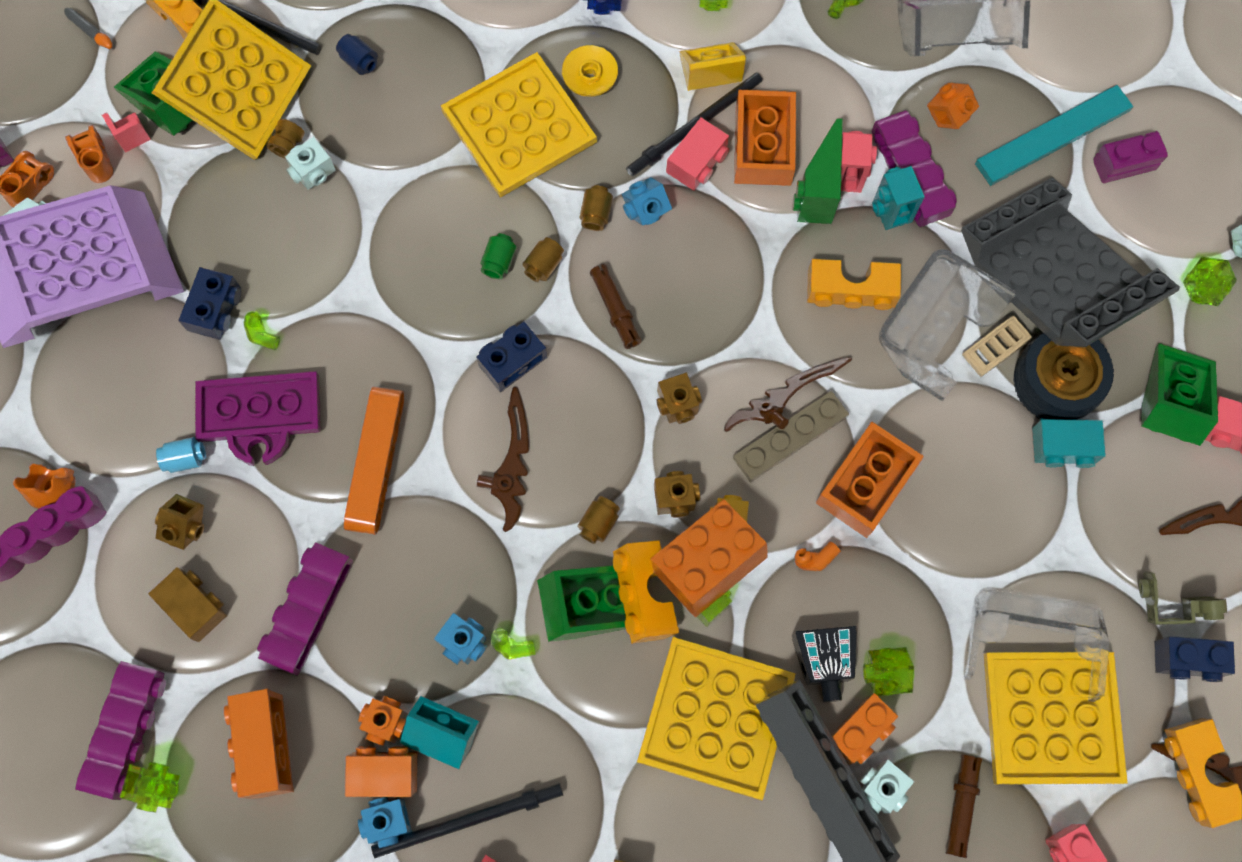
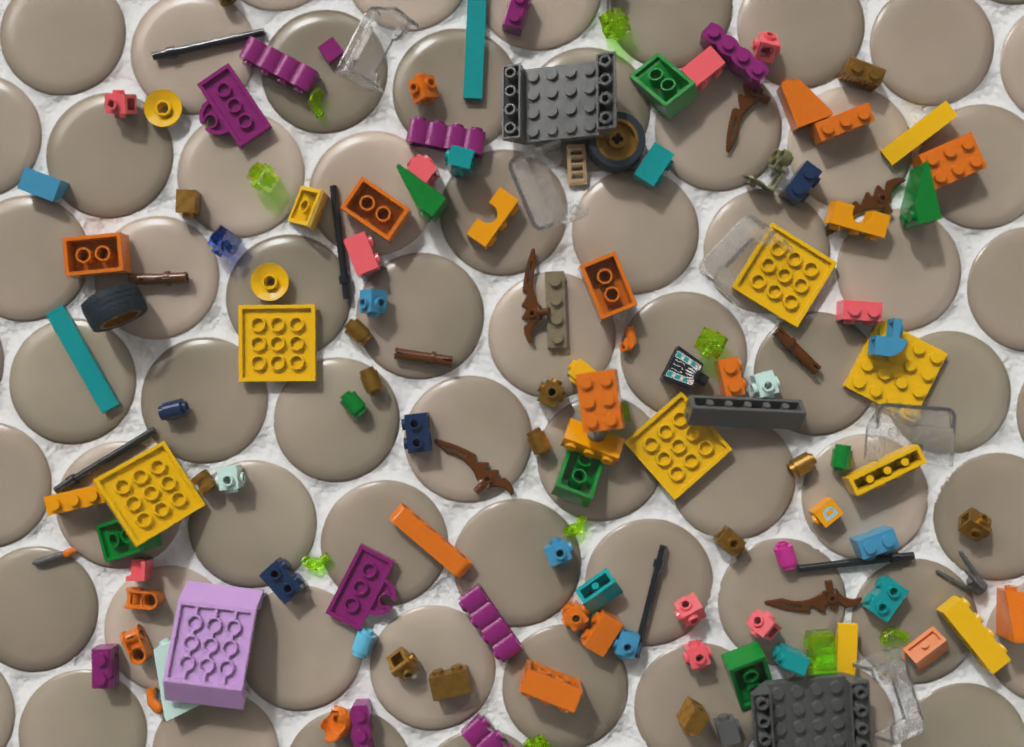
camera: 55 degrees left, 15 degrees up
(678, 399) = (494, 352): pearl gold brick -> none

